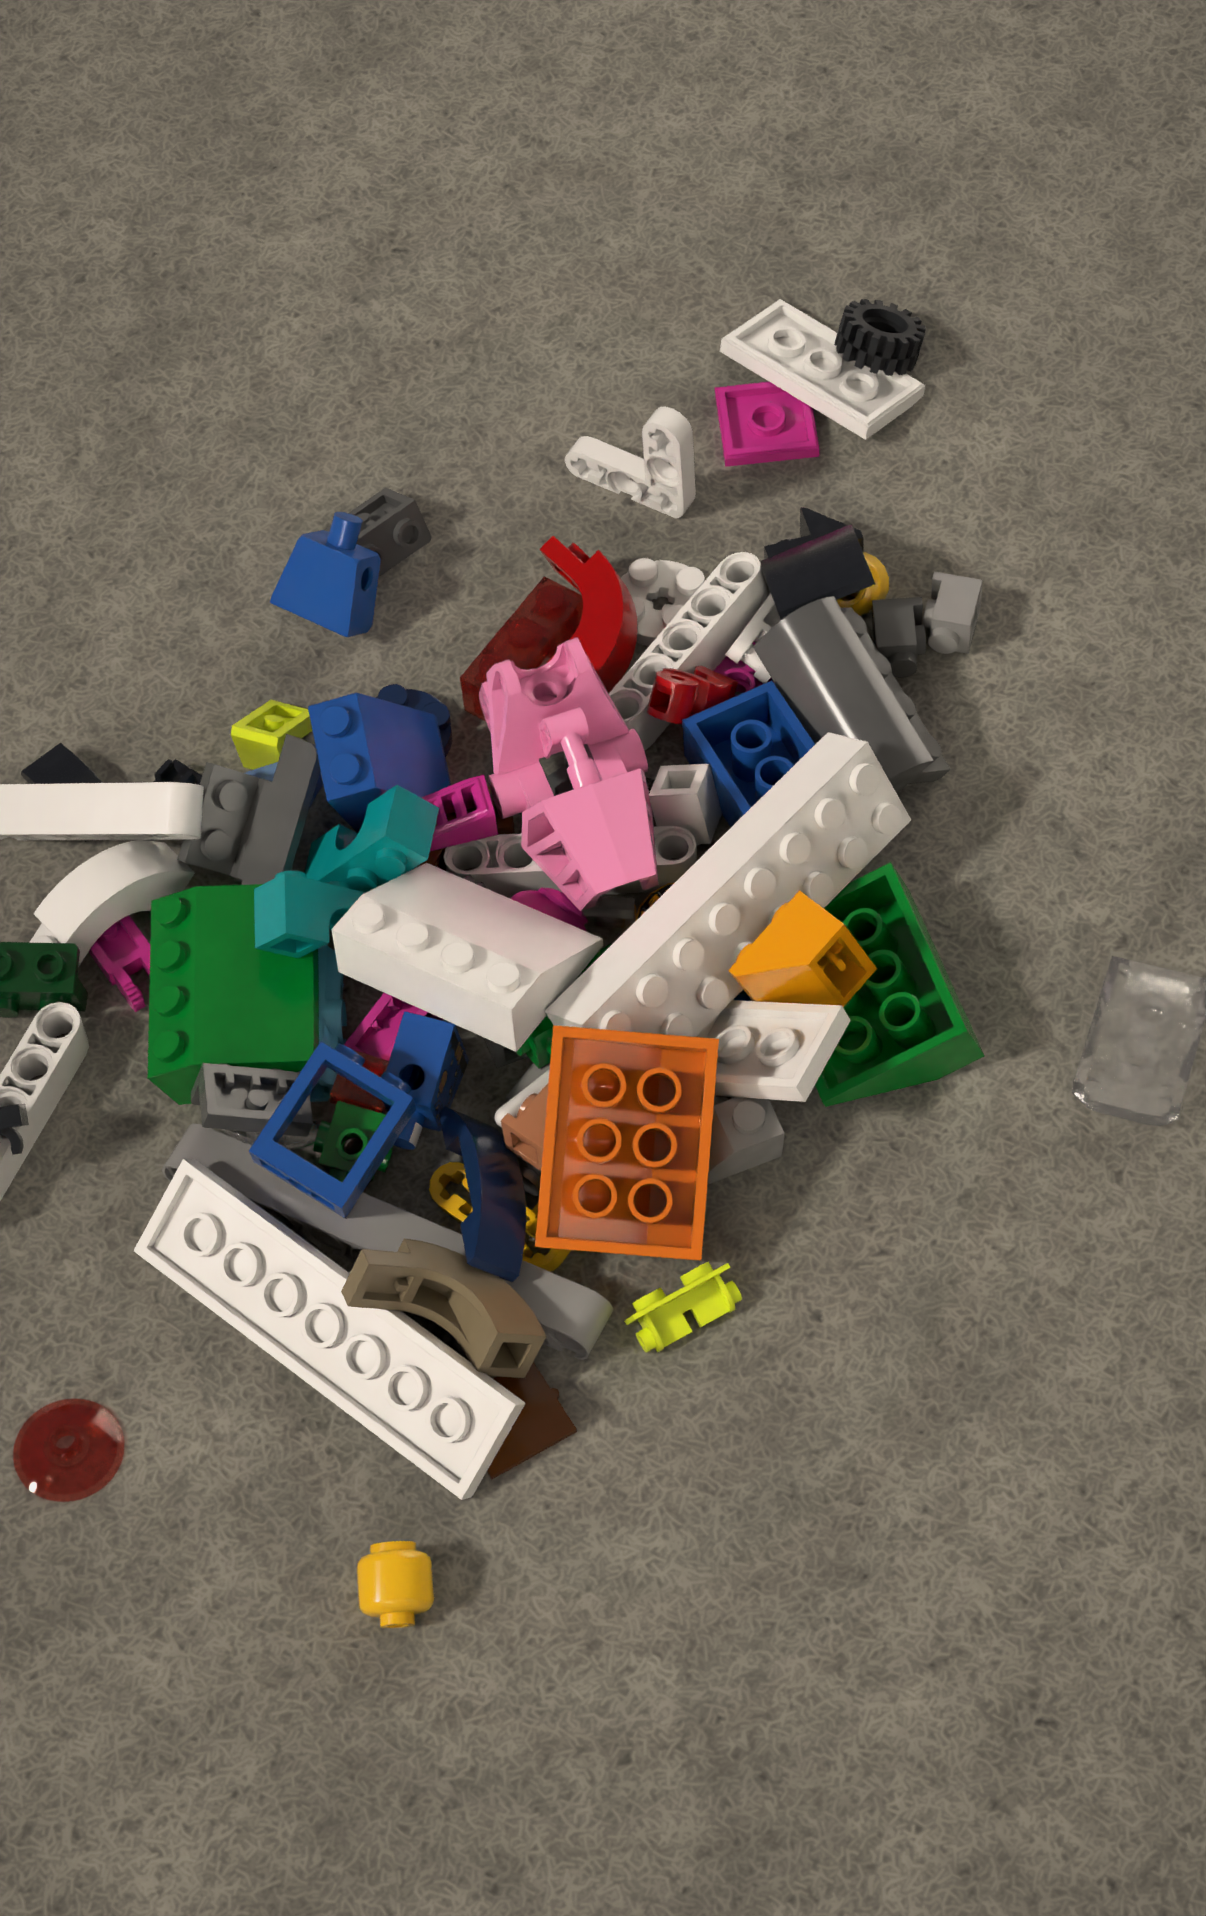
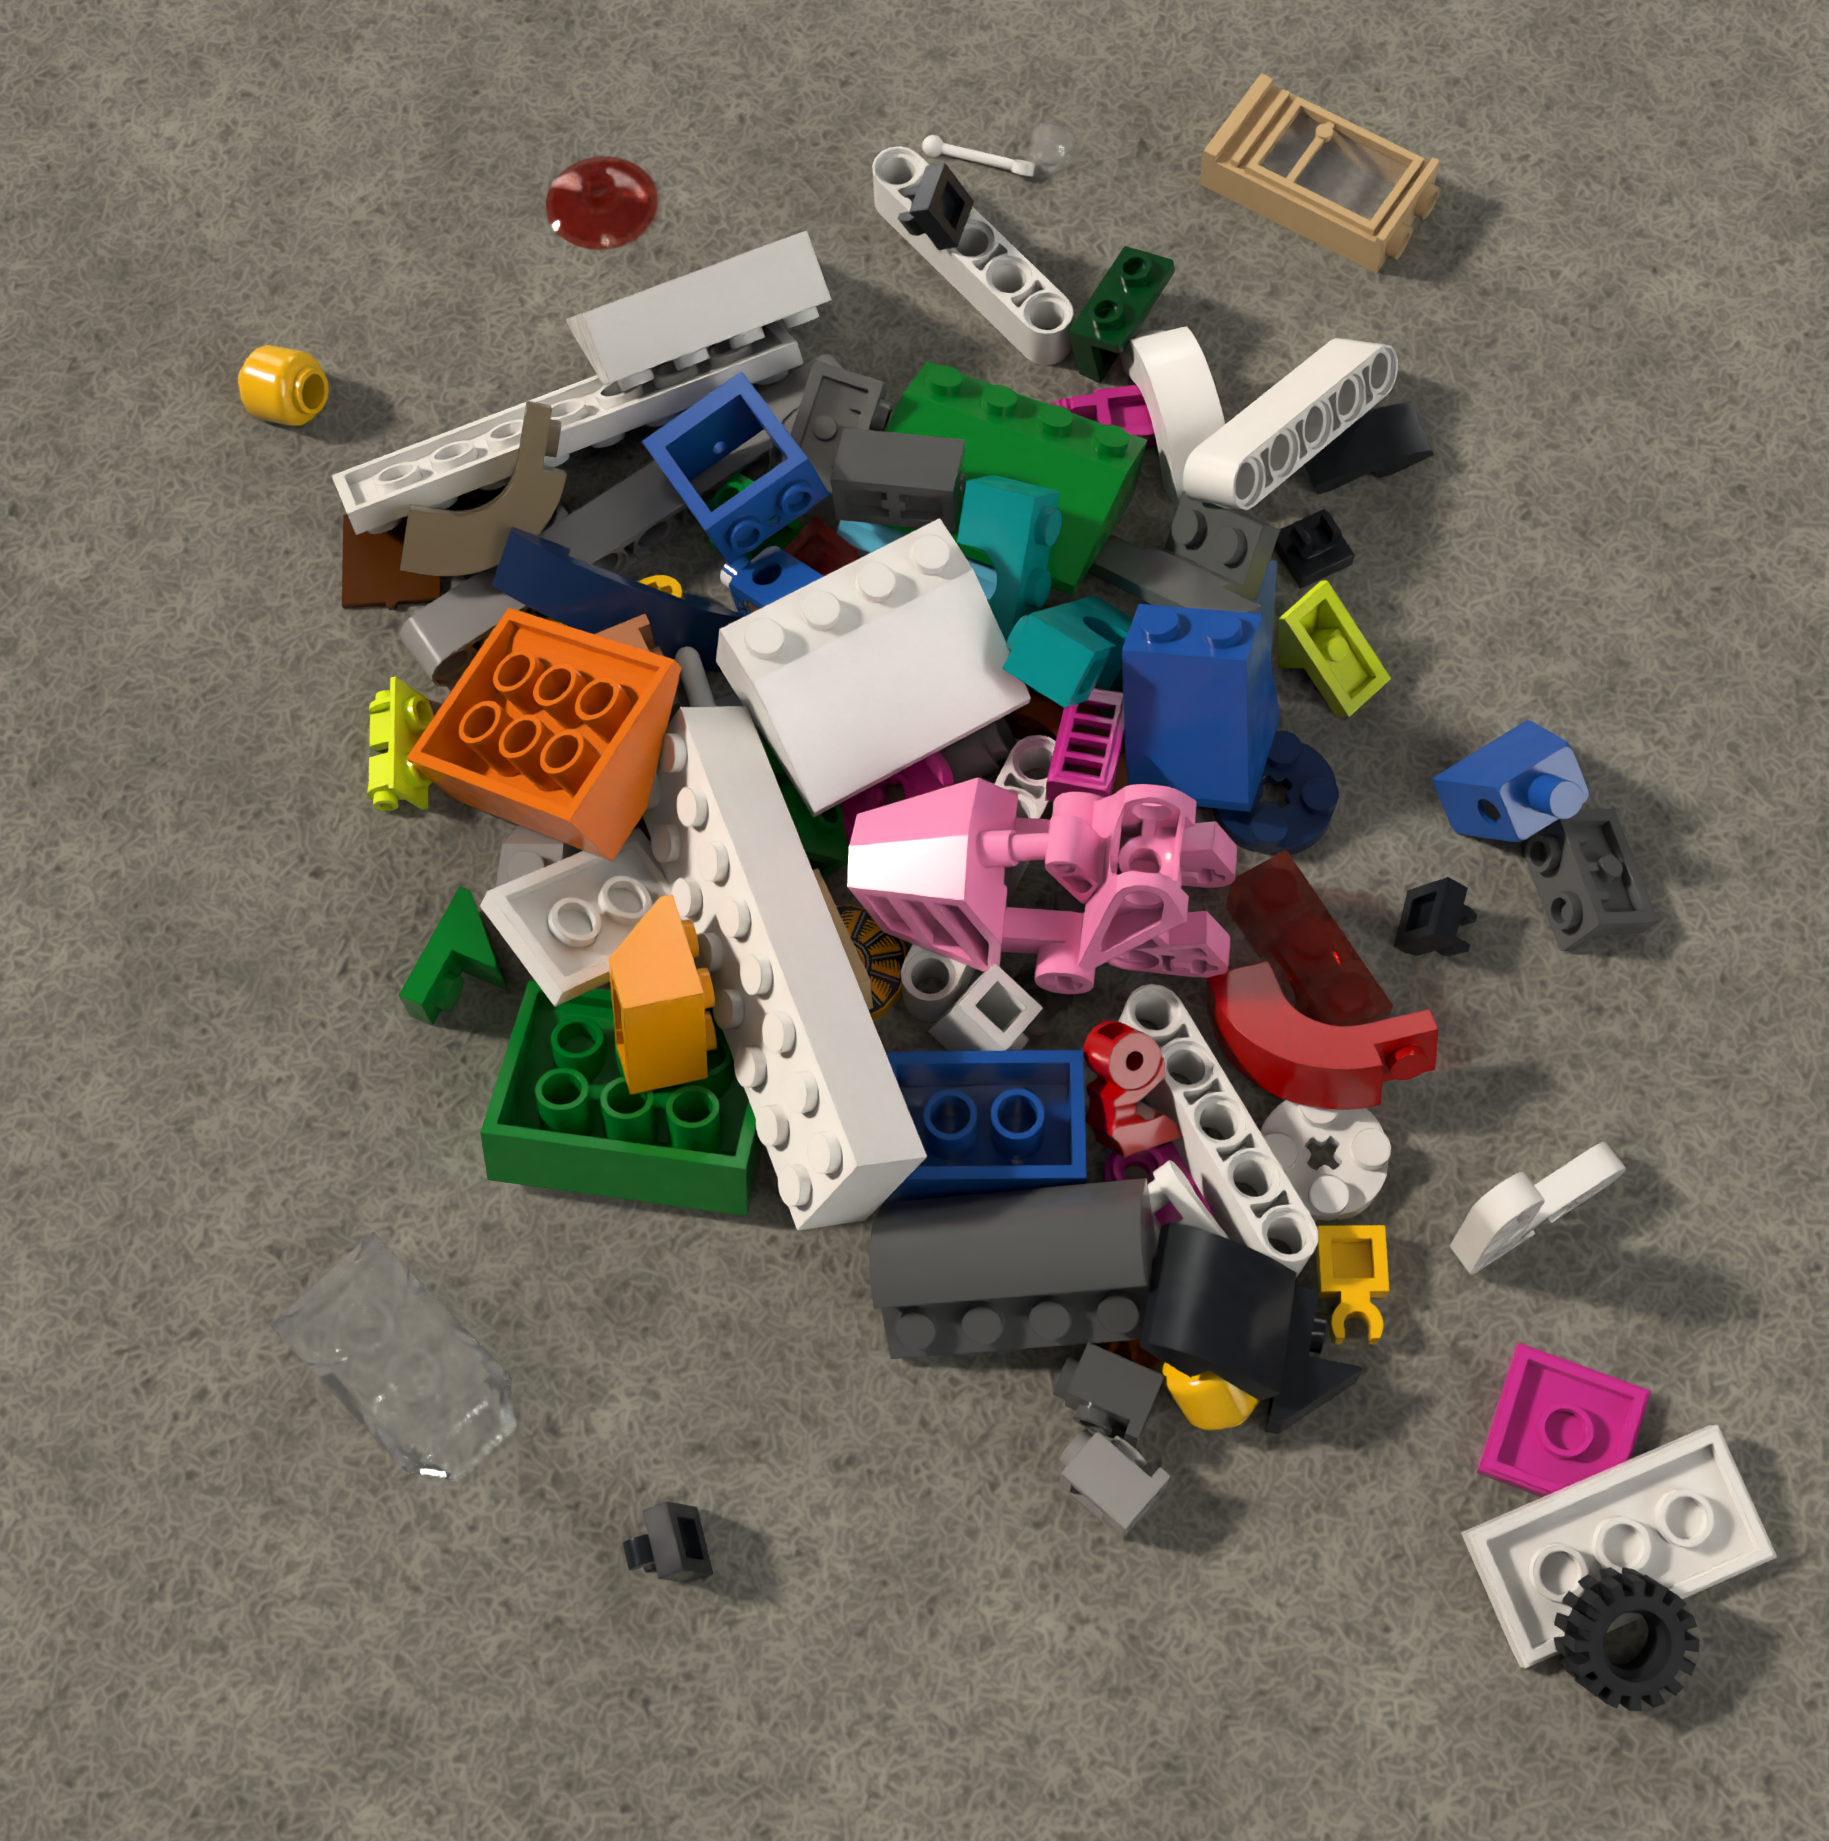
camera: 115 degrees right, 10 degrees up
(170, 1272) = (702, 310): none -> white slope
(282, 1012) = (898, 478): none -> dark grey hinge
(454, 602) = (1433, 918): none -> black tile
(718, 546) = (1353, 1269): none -> yellow plate
(822, 1168) = (455, 947): none -> green slope
(1155, 824) = (673, 1544): none -> black tile

